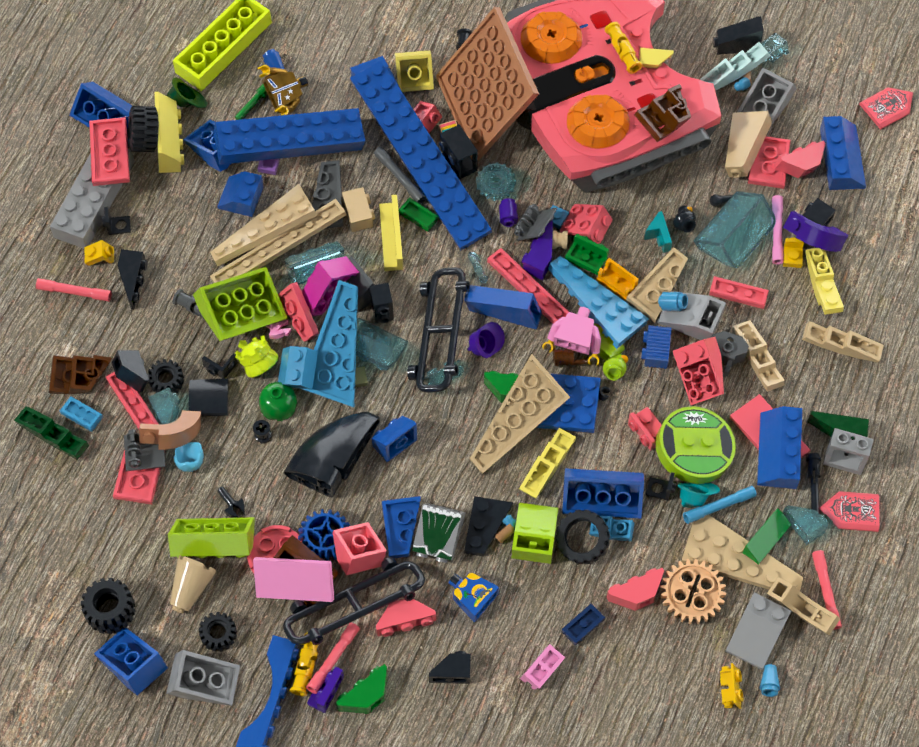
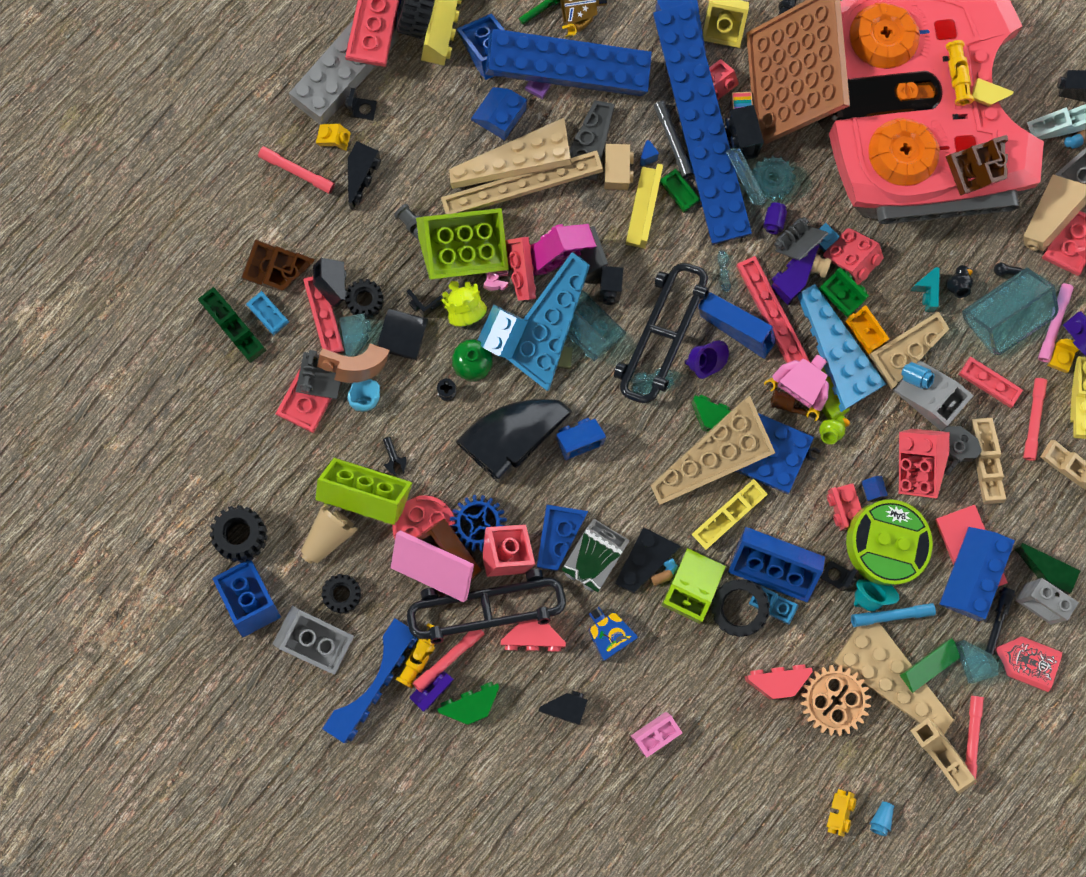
camera: 10 degrees right, 15 degrees up
(302, 265) = (545, 215): clear light blue slope -> none
(383, 192) = (649, 154): none -> blue slope
(472, 184) = (746, 176): none -> clear light blue tile
(583, 624) = (712, 700): dark blue plate -> none
(657, 346) = (884, 419): blue brick -> none
(667, 405) = (874, 488): none -> blue slope
(758, 631) = (888, 763): light grey slope -> none
(791, 330) = (1038, 395): none -> coral piece

